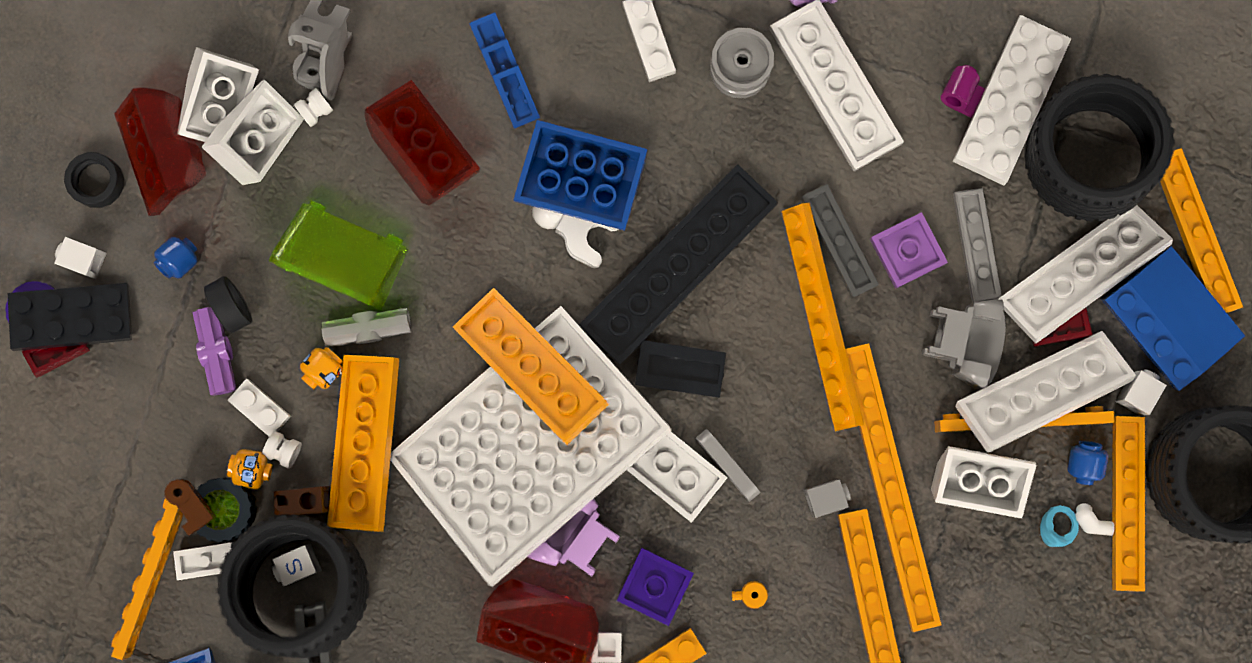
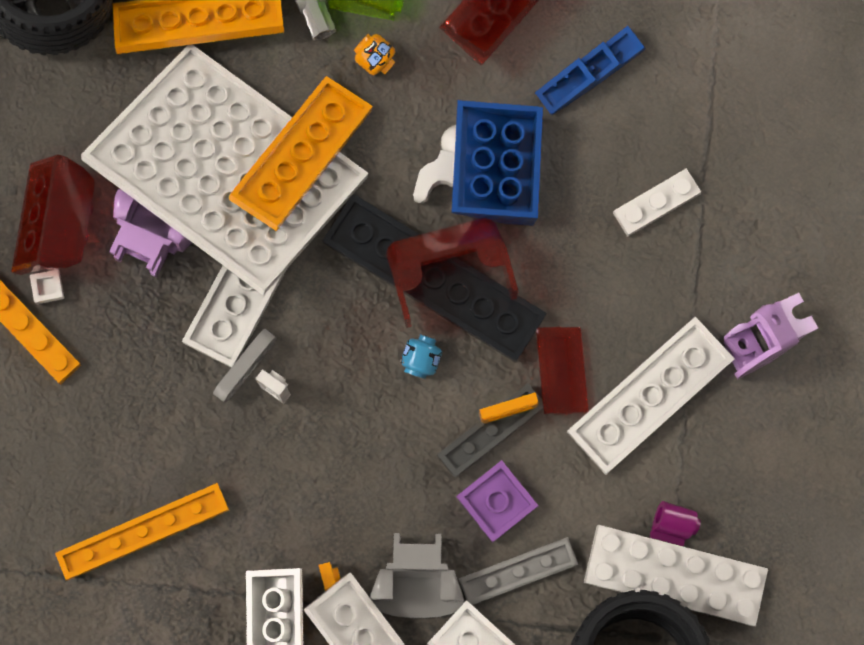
camera: 80 degrees right, 5 degrees down
(441, 274) = (375, 54): none -> light orange head
(655, 274) = (409, 254): none -> clear red windscreen
(655, 586) = (113, 320): dark purple plate -> none
(680, 369) = (331, 302): black piece -> none
(741, 46) = (654, 278): light grey wheel -> none
(747, 590) = (121, 411): light orange piece -> none
(755, 292) = (421, 356): none -> dark azure head
(757, 438) = (274, 385): none -> white plate
(795, 162) = (562, 370): none -> clear red piece
(822, 317) = (410, 428): light orange plate -> none
(826, 217) = (508, 408): none -> light orange tile
(827, 498) = (231, 468): light grey brick -> none
(892, 493) = (254, 529): light orange plate -> none

